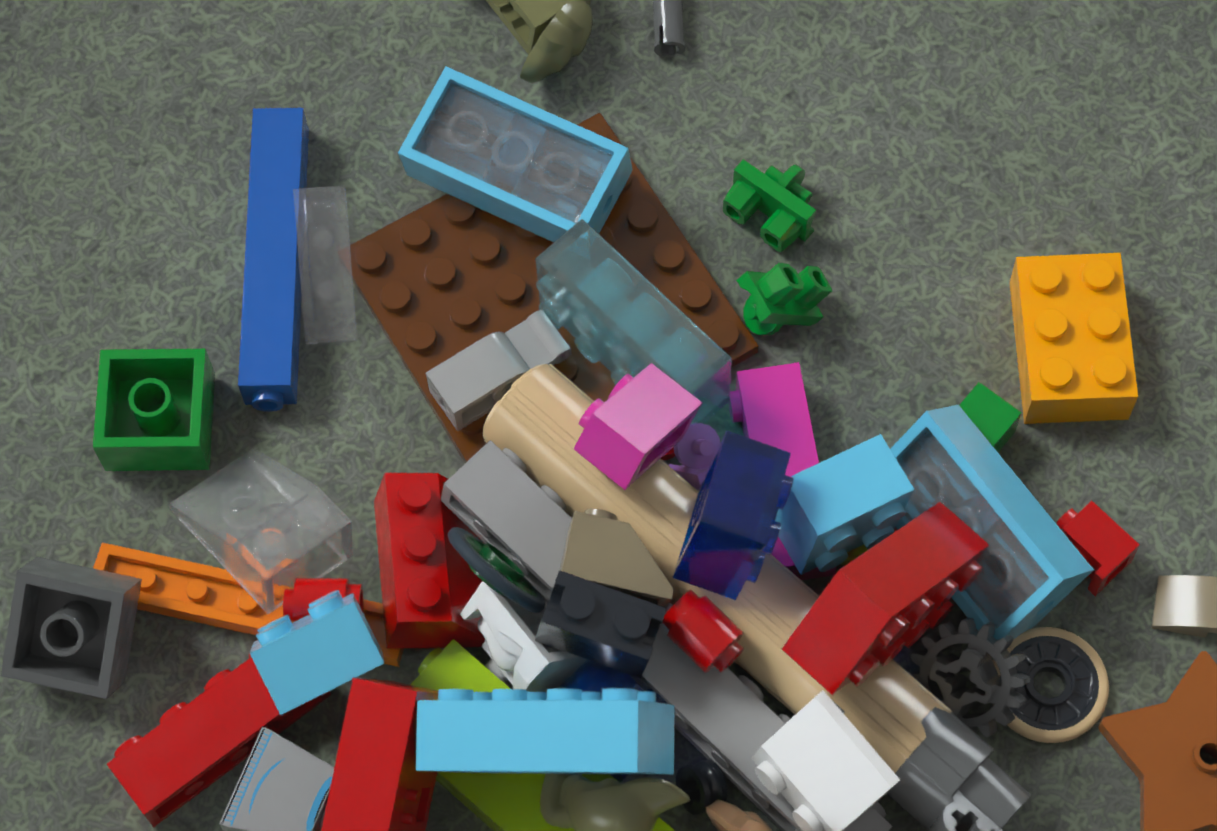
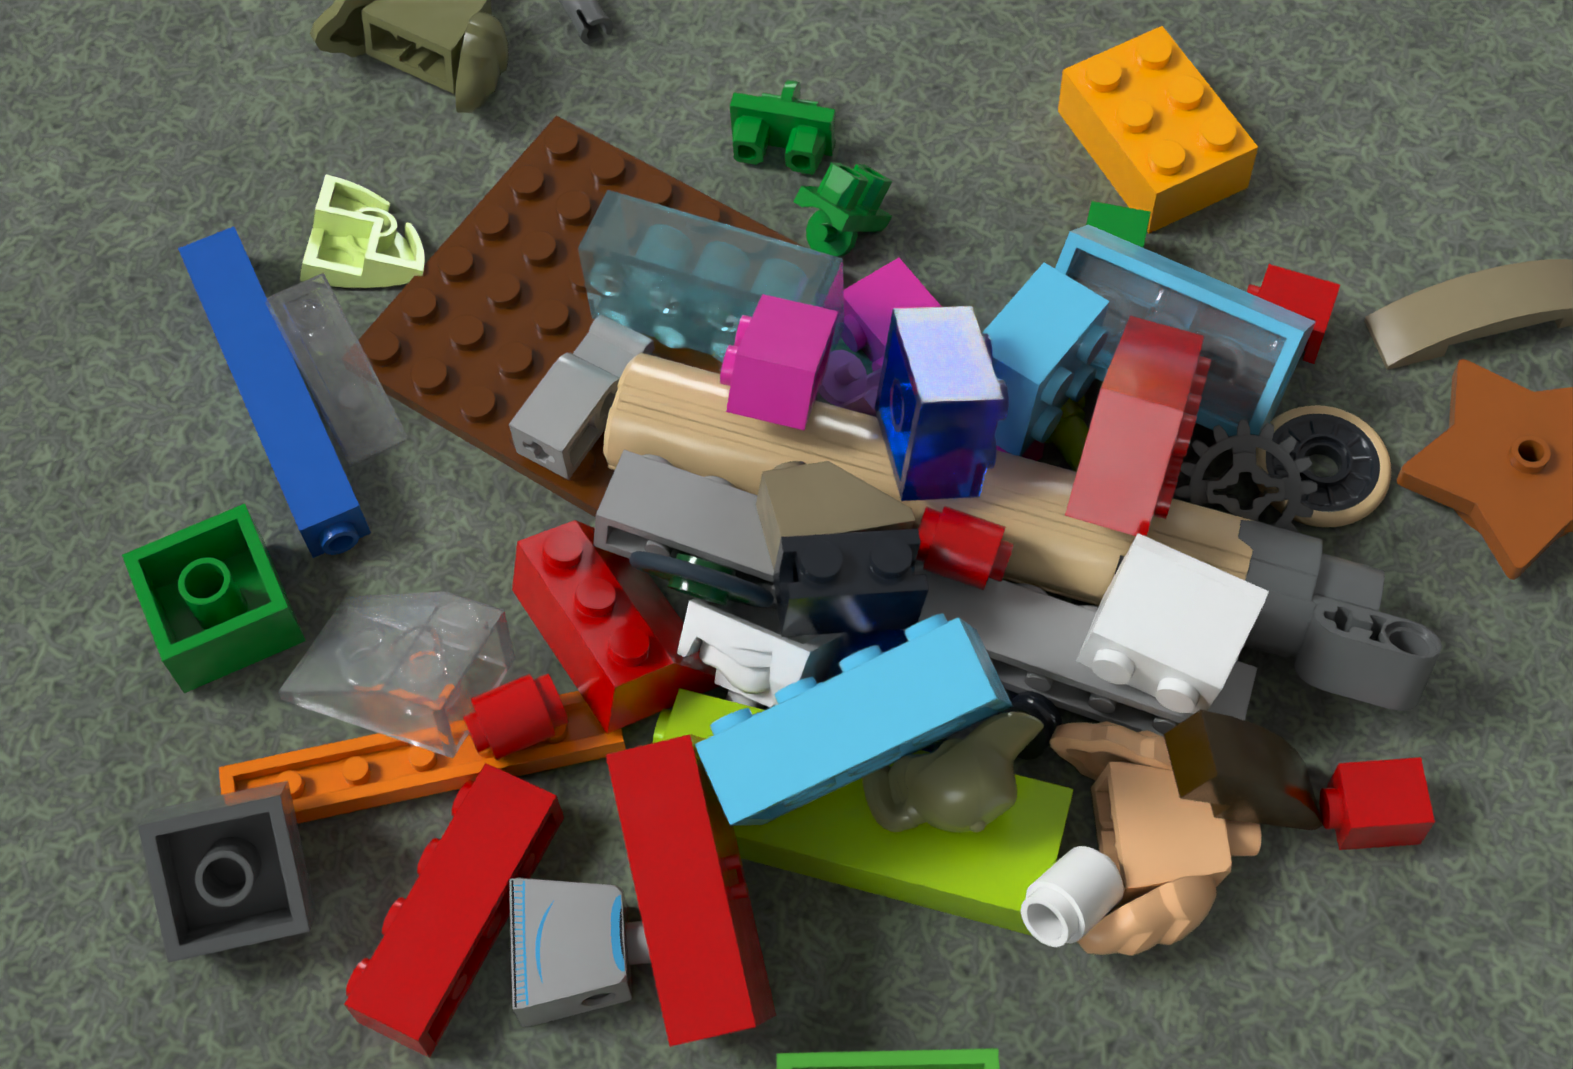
camera: 25 degrees left, 5 degrees down
(315, 651) = (543, 755): medium azure brick -> none
(375, 155) = (359, 241): none -> yellowish green brick
(513, 158) = (490, 179): brick -> none

